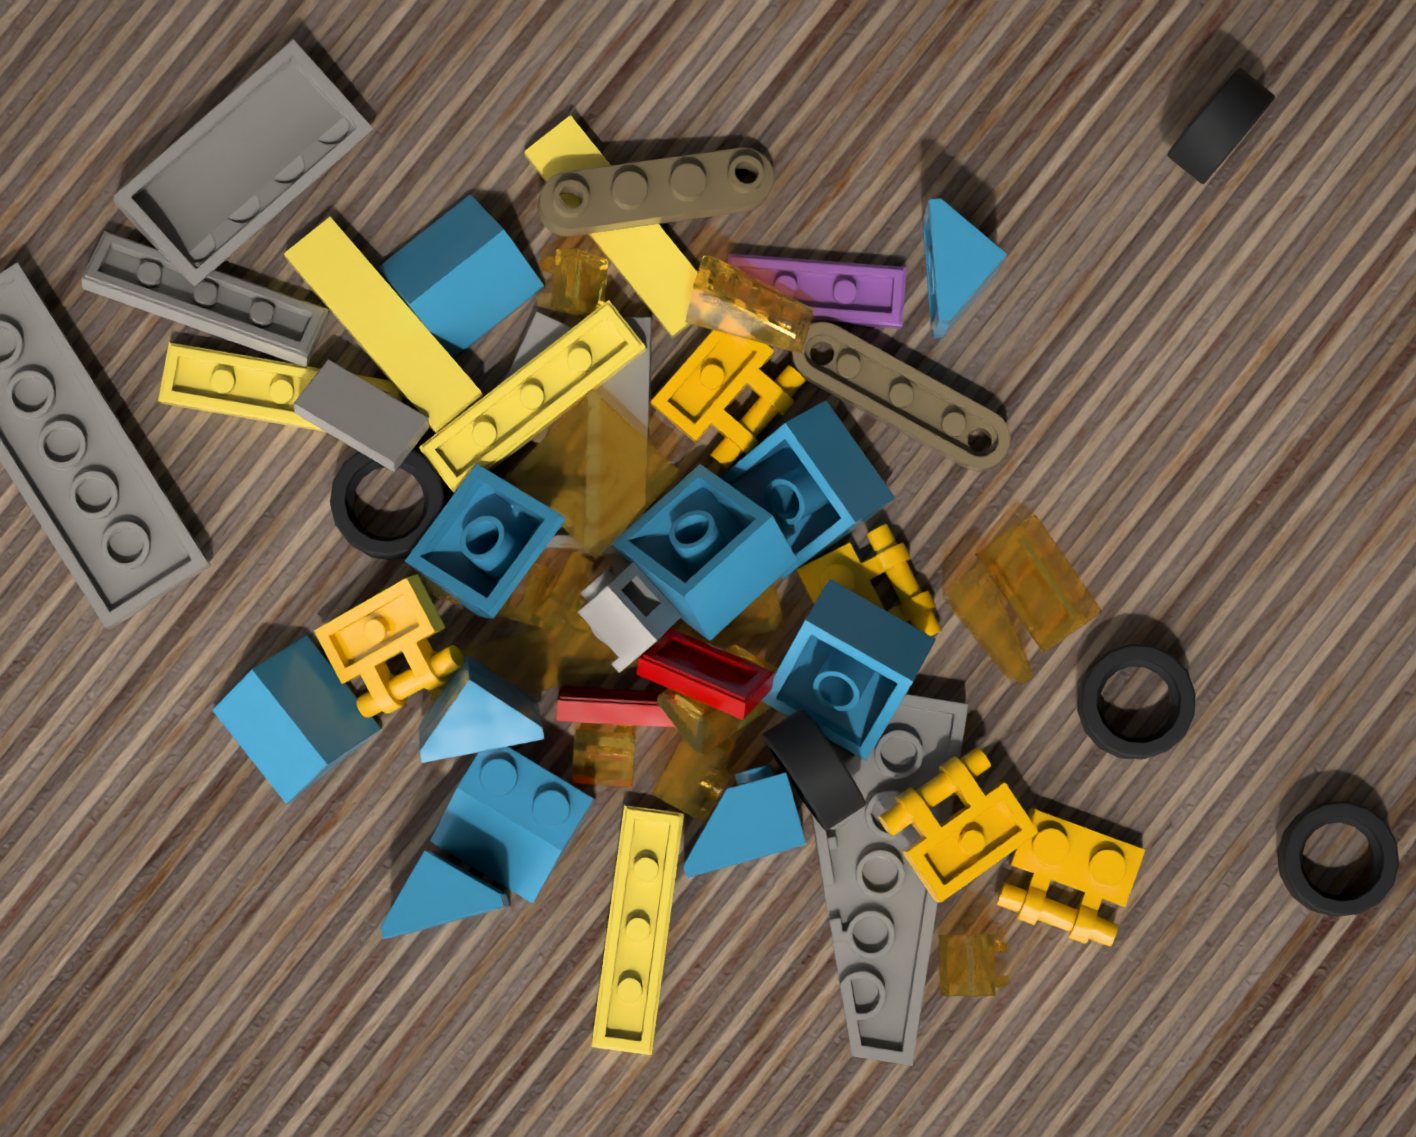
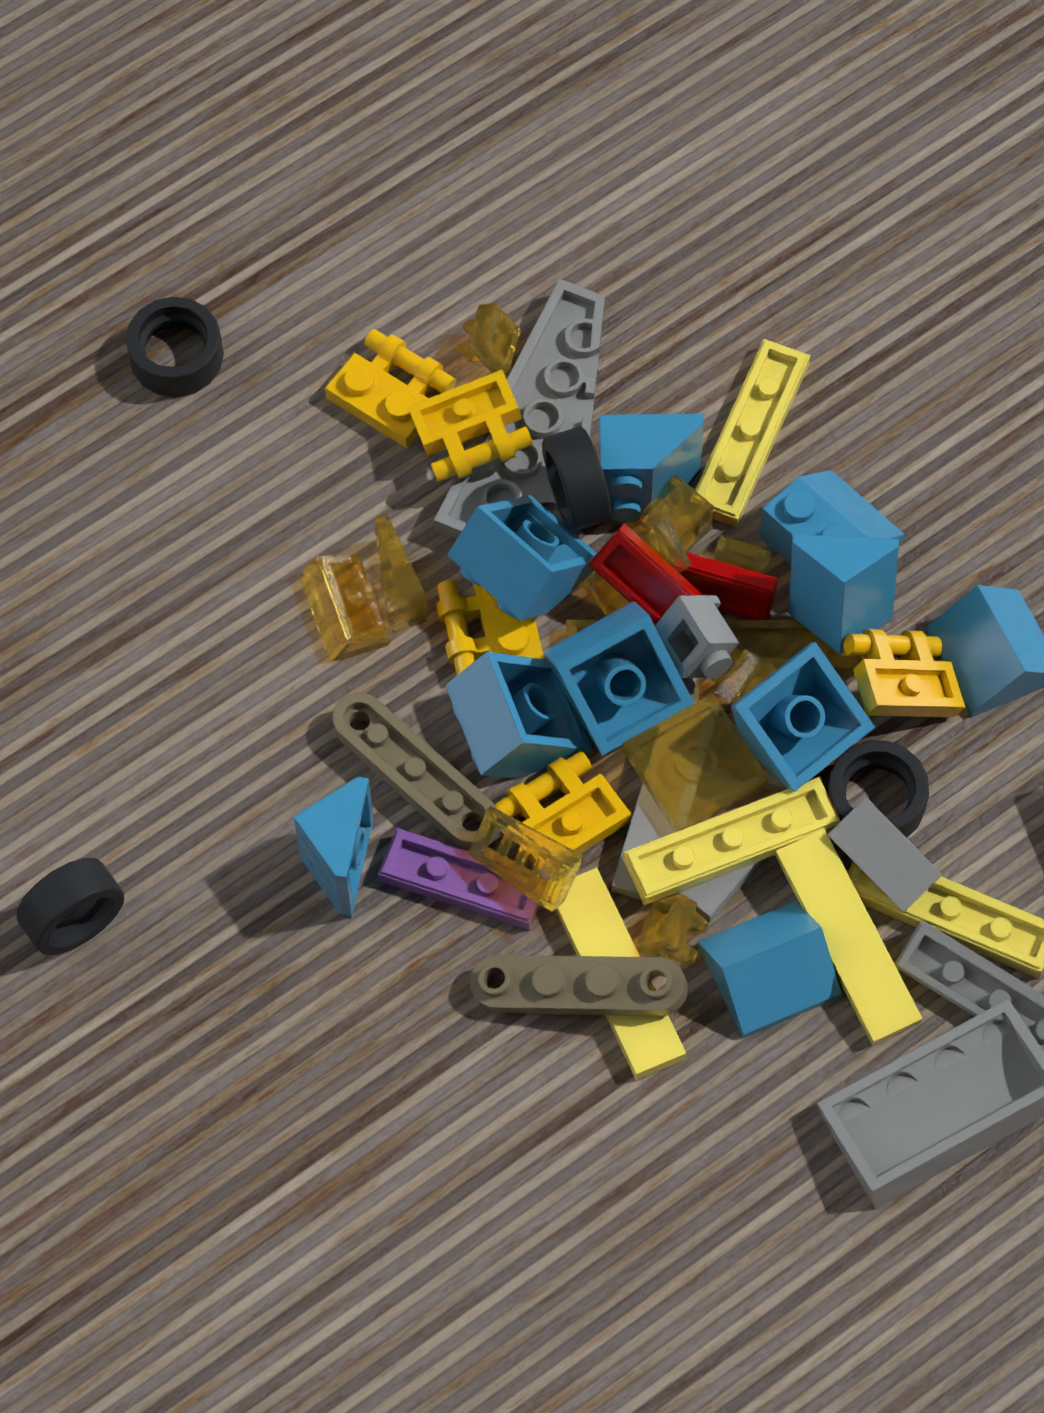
camera: 165 degrees left, 20 degrees down
(439, 895) = (904, 468): dark azure slope -> none
(1168, 669) = (295, 459): black tyre -> none

